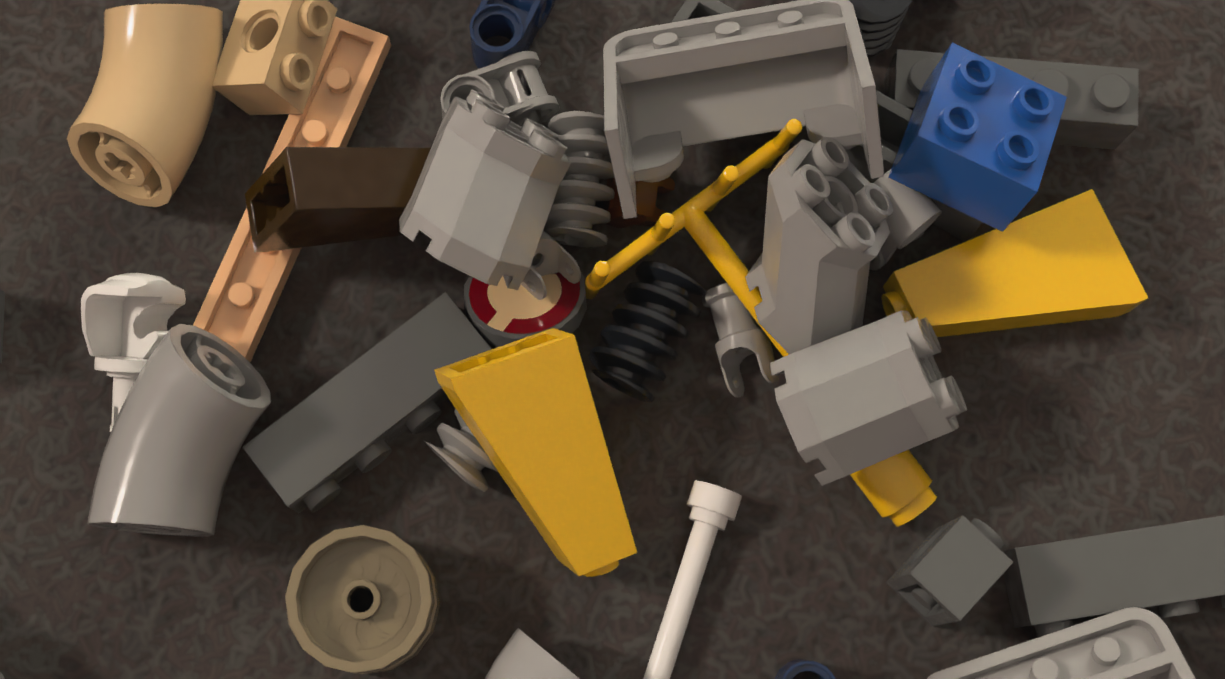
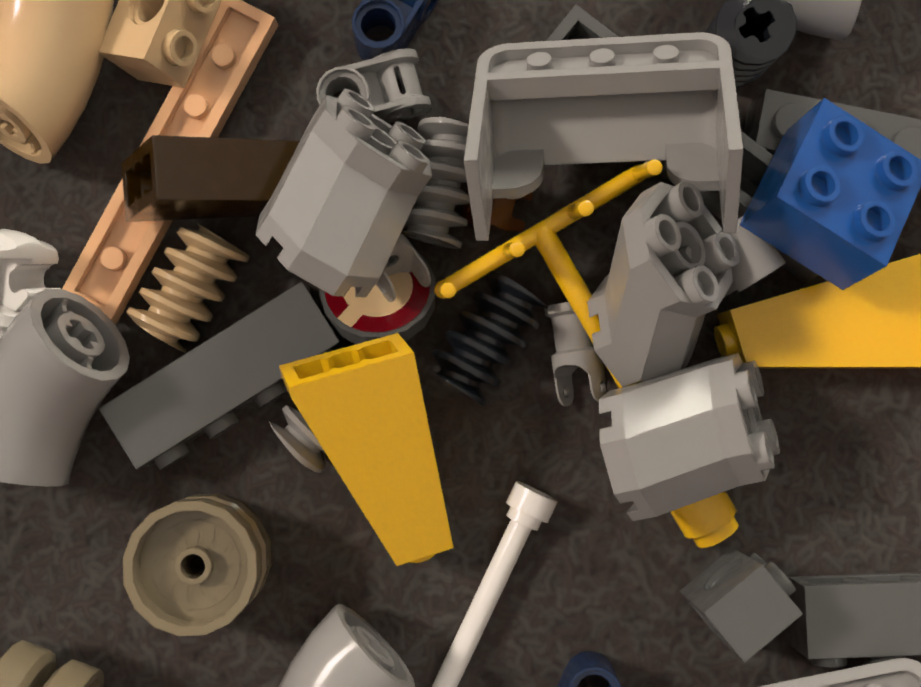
camera: 10 degrees right, 10 degrees up
(321, 313) = (187, 286): none -> tan piece

